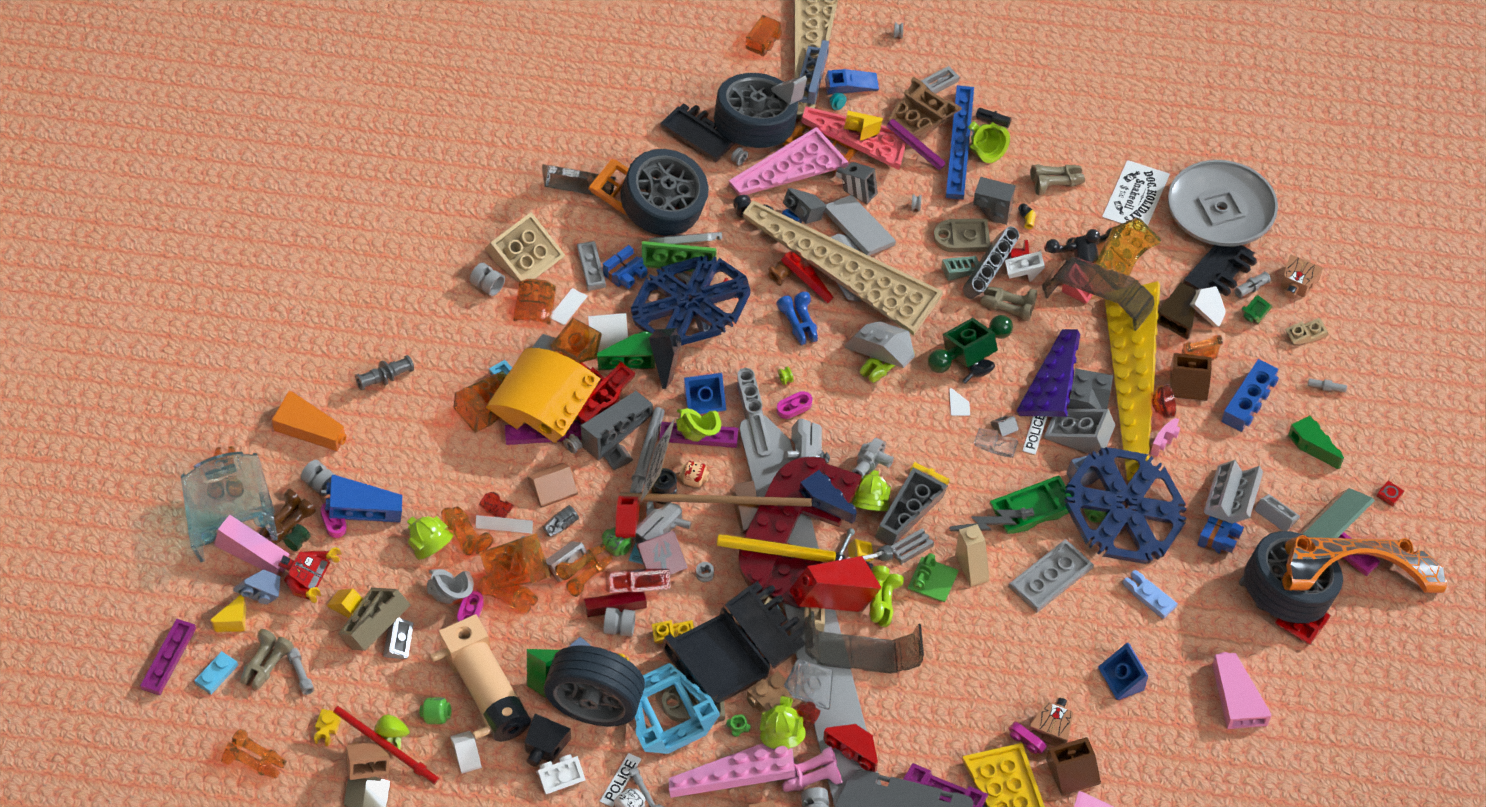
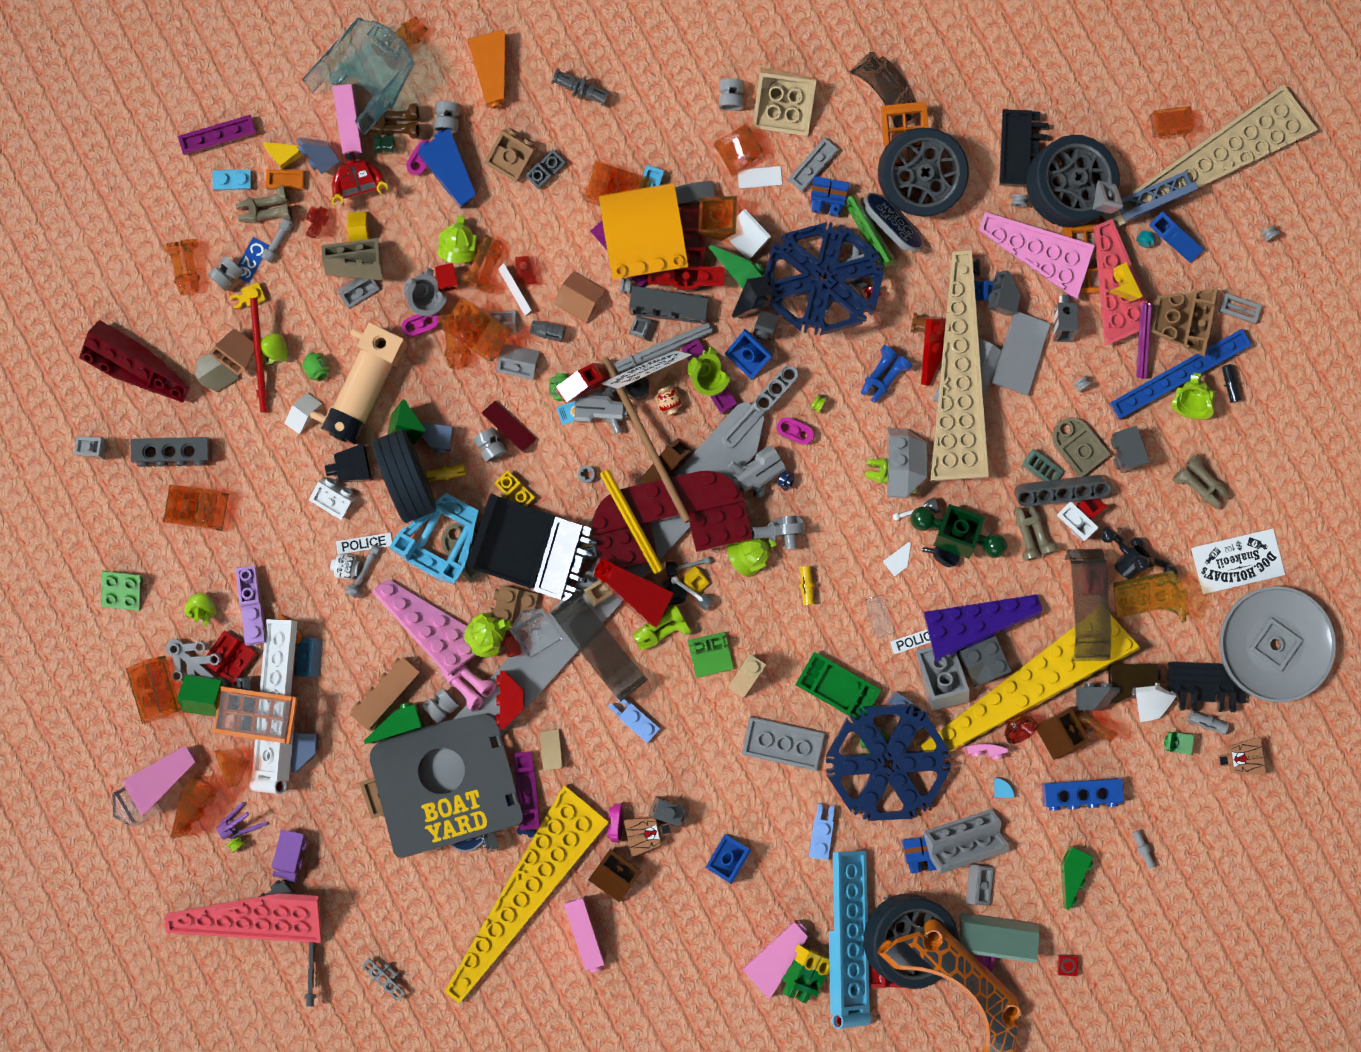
camera: 55 degrees right, 30 degrees up
(247, 638) = (290, 178): none -> orange tile
(291, 726) = (225, 273): none -> light grey wheel
(297, 705) = (251, 259): none -> blue sticker
(313, 628) = (318, 219): none -> clear red plate
(392, 453) = (510, 154): none -> medium nougat plate
(426, 439) = (546, 169): none -> dark grey slope
(450, 561) = (446, 277): none -> red panel
(567, 570) = (503, 374): clear orange piece -> none
(637, 580) = (536, 430): clear red slope -> none
(662, 553) = (571, 433): tile -> none
(692, 365) = (765, 325): none -> dark grey slope
(741, 203) = (967, 242): black wheel -> none
(741, 720) = (469, 592): bright green plate -> none
(827, 497) = (704, 525): dark blue slope -> none
(830, 435) = (786, 480): none -> dark blue plate
(898, 550) = (744, 622): light grey tile -> none
(912, 502) = (767, 591): dark grey wedge -> none
(922, 382) = (931, 504): none -> hinge
(923, 750) = (551, 749): none -> tan slope
(945, 669) = (636, 720): none -> light blue hinge
(1004, 519) = (803, 675): dark grey piece -> none
(1005, 425) = (902, 612): slope -> none
(1028, 214) = (1142, 486): arm -> none
(1048, 688) = (669, 812): none -> dark grey torso
(1176, 334) = (1095, 698): none -> dark grey slope
(1206, 448) = (1002, 789): none -> medium azure tile
(1264, 627) = (846, 944): none -> medium azure hinge
(1268, 673) = (806, 974): none -> green hips
(1304, 333) = (1190, 798): tan slope -> none

